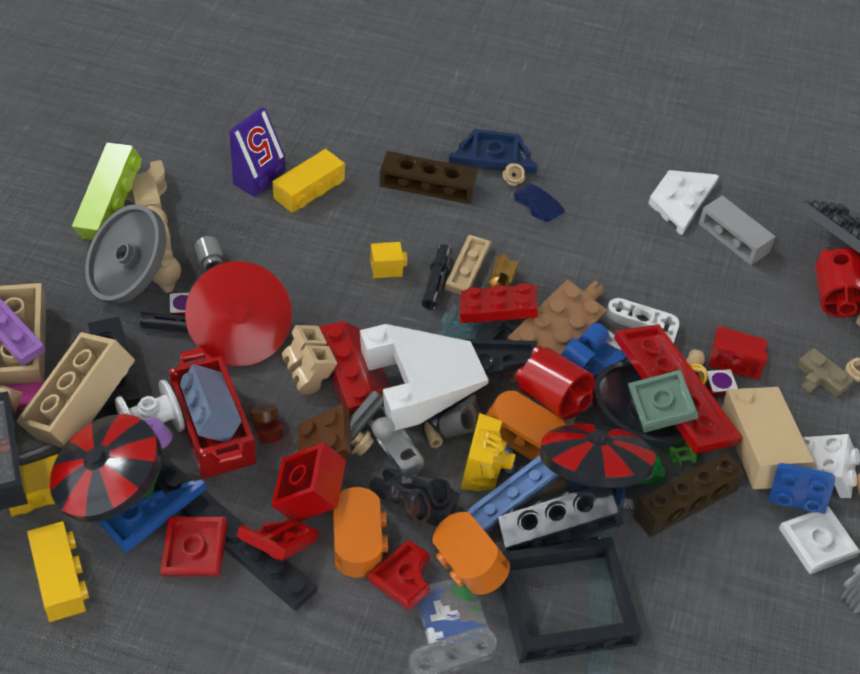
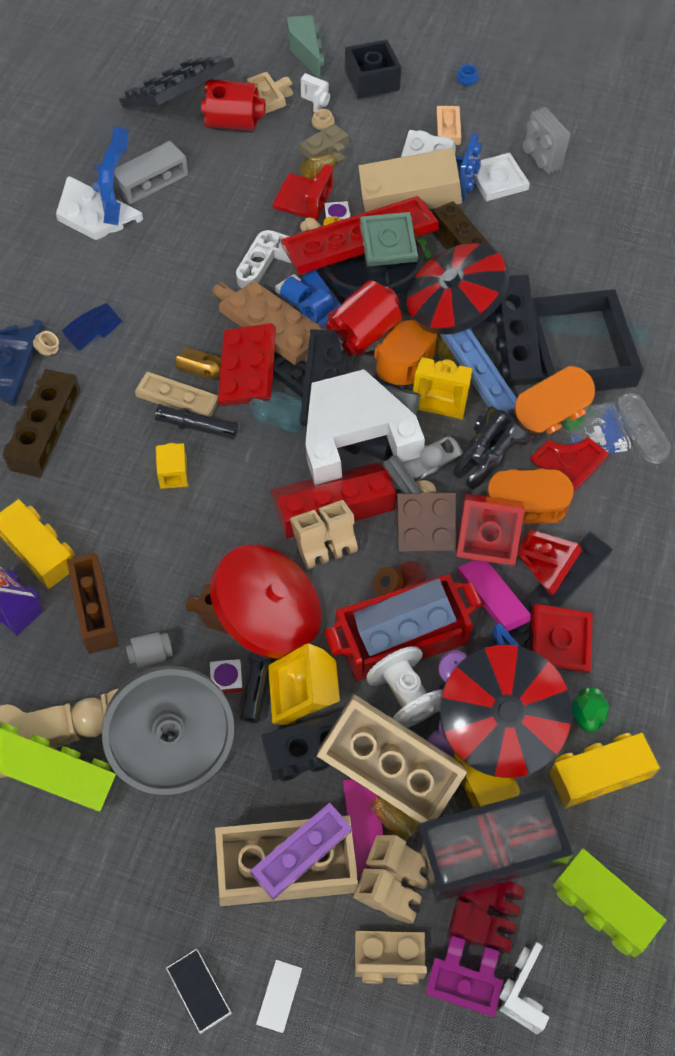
camera: 85 degrees left, 10 degrees up
(115, 564) = (590, 709): none -> green rock
(159, 347) = (302, 684): none -> yellow brick
(239, 493) = (495, 594): none -> dark pink tile
(249, 213) = (92, 603): none -> reddish brown brick
(704, 193) = (106, 171): none -> blue piece
(782, 363) = (315, 164): none -> clear yellow cone

